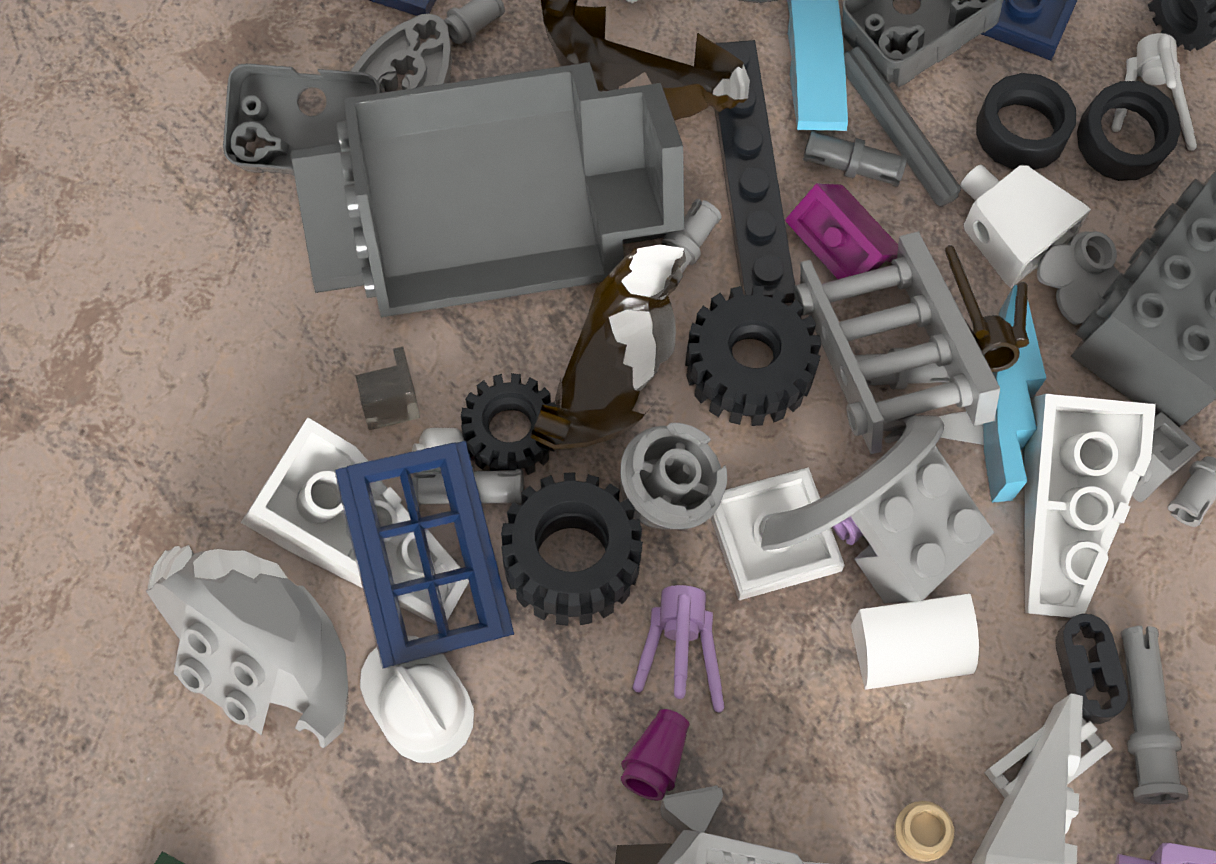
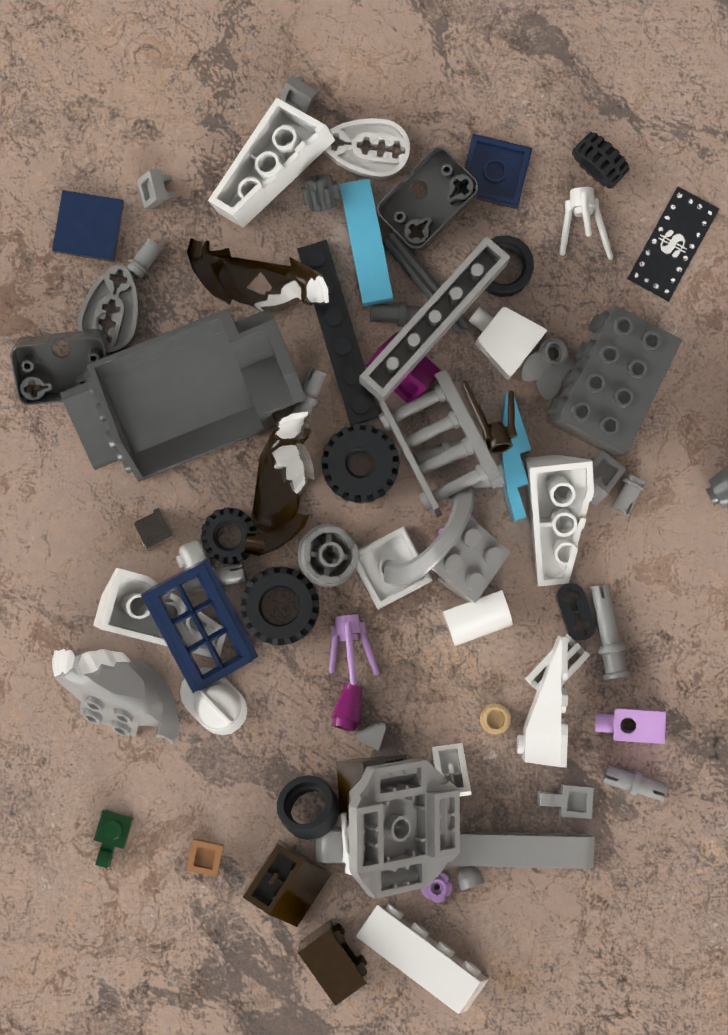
camera: 10 degrees left, 20 degrees up
(911, 147) = (434, 319): none -> light grey brick
(1148, 103) = (590, 267): black tyre -> none

